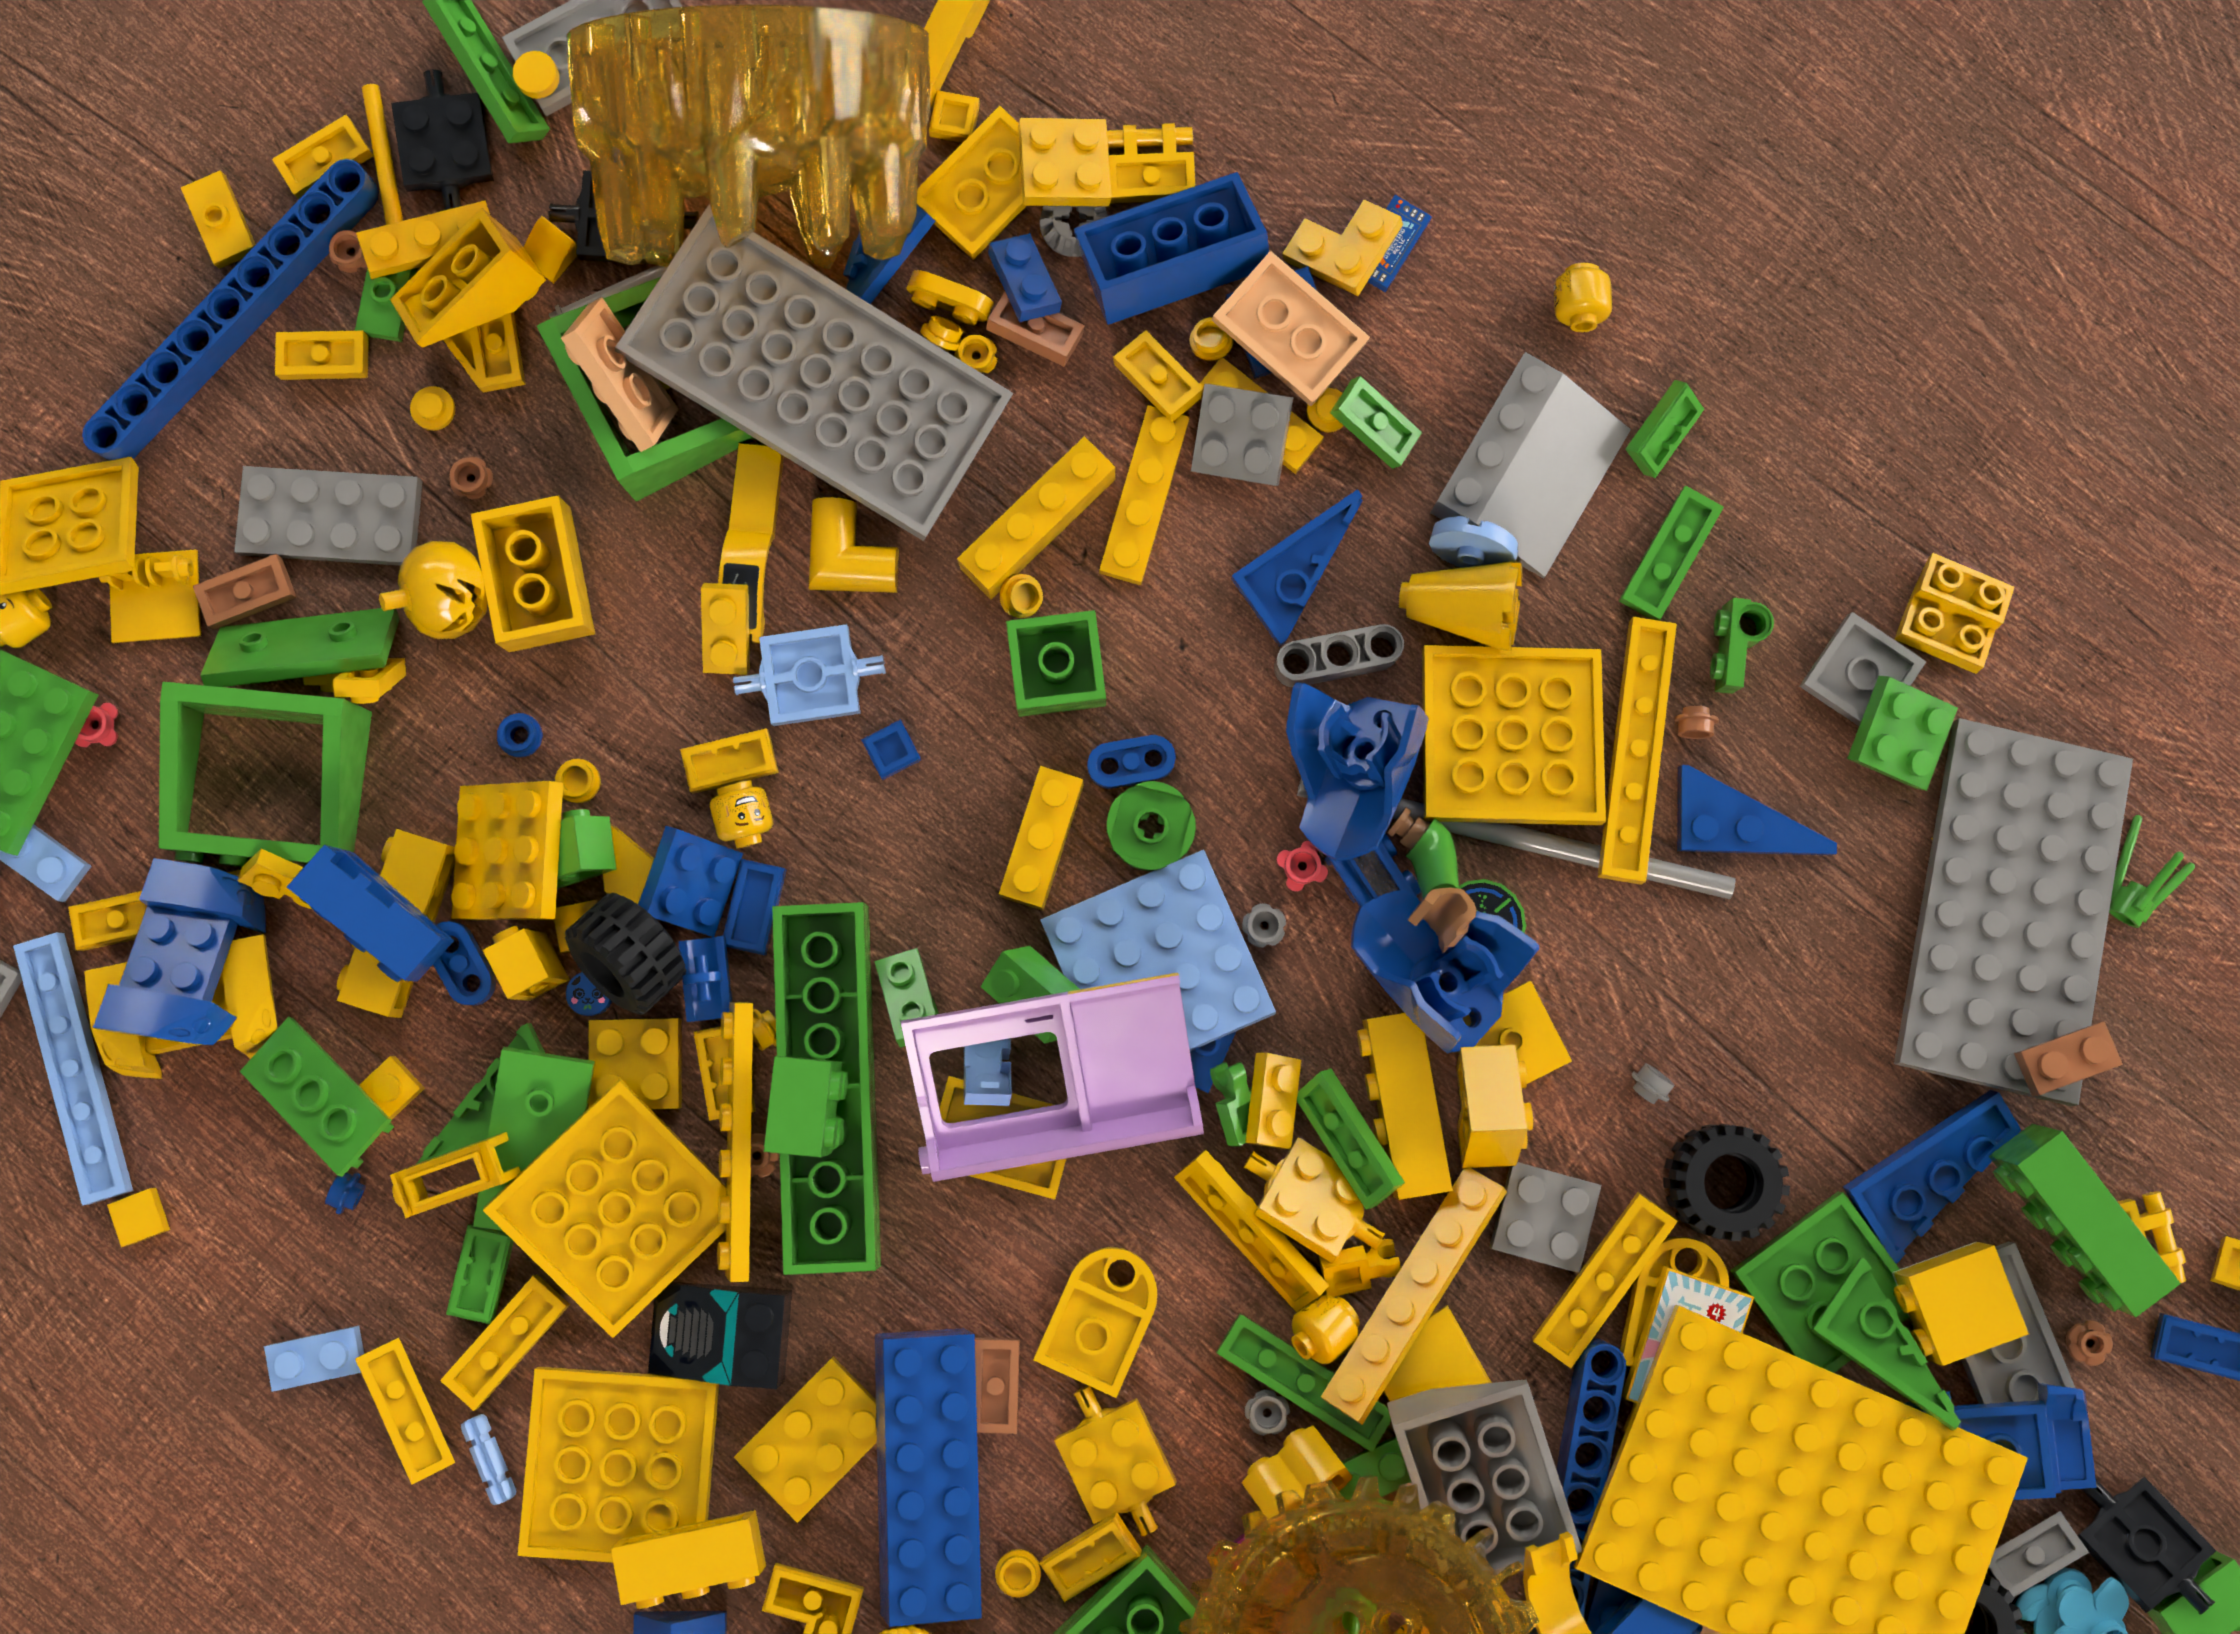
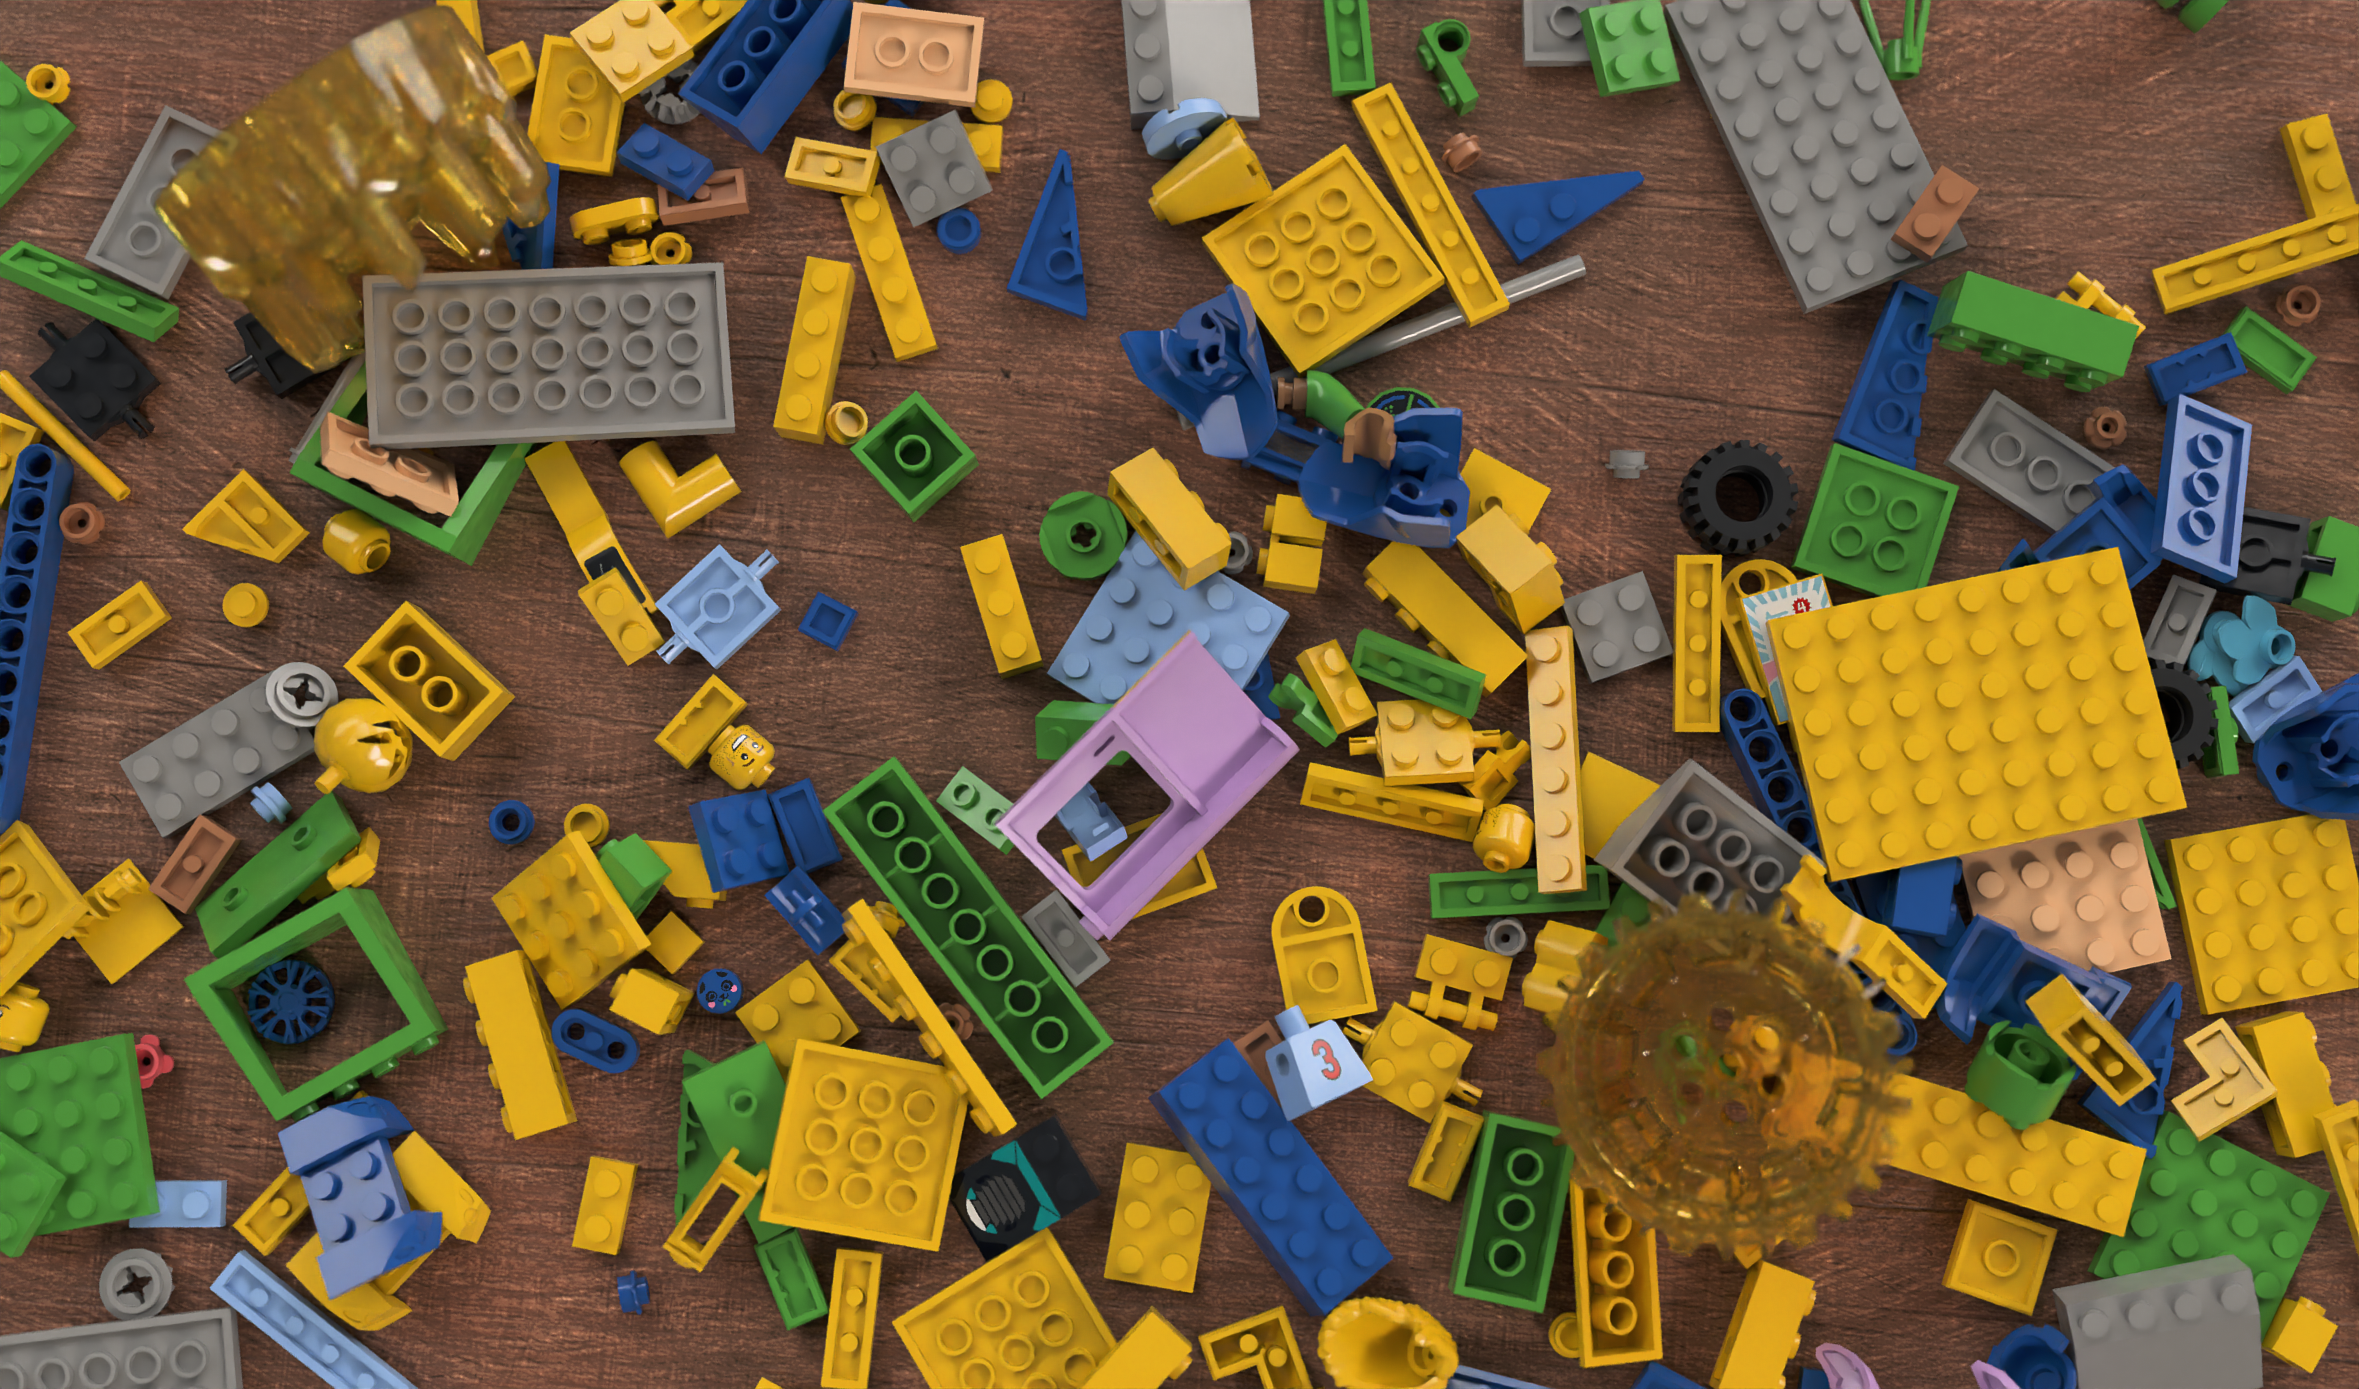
camera: 40 degrees left, 0 degrees up
(242, 757) = (291, 1001): none -> blue wheel
(270, 876) = (393, 1074): yellow plate -> none
(316, 1097) = (554, 1228): bright green brick -> none
(337, 584) = (270, 803): none -> light blue plate
(370, 913) = (495, 1047): blue wedge -> none
(376, 312) = (138, 537): bright green plate -> none
(412, 241) = (141, 468): yellow plate -> none
(423, 492) = (286, 681): none -> light grey gear
(462, 470) = (307, 640): nougat plate -> none
(468, 282) = (202, 479): yellow slope -> none
(536, 74) = (136, 269): yellow tile -> none
(550, 249) = (250, 408): yellow slope -> none
(555, 419) = (356, 541): none -> yellow head
(625, 953) = (728, 932): black tyre -> none
(805, 1106) = (963, 946): bright green brick -> none
(898, 1141) = (1065, 938): none -> light grey plate
(1018, 1573) = (1397, 1206): yellow plate -> none
(1028, 1407) = (1312, 1064): none -> light blue torso
(1130, 760) = (1030, 495): blue plate -> none
(1212, 1412) = (1464, 969): none -> yellow plate
(1226, 499) = (959, 230): none -> blue tile
(1232, 862) = (1169, 518): none -> yellow brick
(1298, 878) = (1225, 471): coral plate -> none
(1304, 970) = (1291, 565): none -> yellow piece
(1355, 642) = (1143, 274): light grey beam -> none
(1376, 422) = (1036, 84): bright green plate -> none
(1868, 1331) = (1928, 537): bright green wing -> none
(1959, 1303) = (1983, 465): yellow piece -> none
(2137, 1457) = (2201, 488): none -> plate

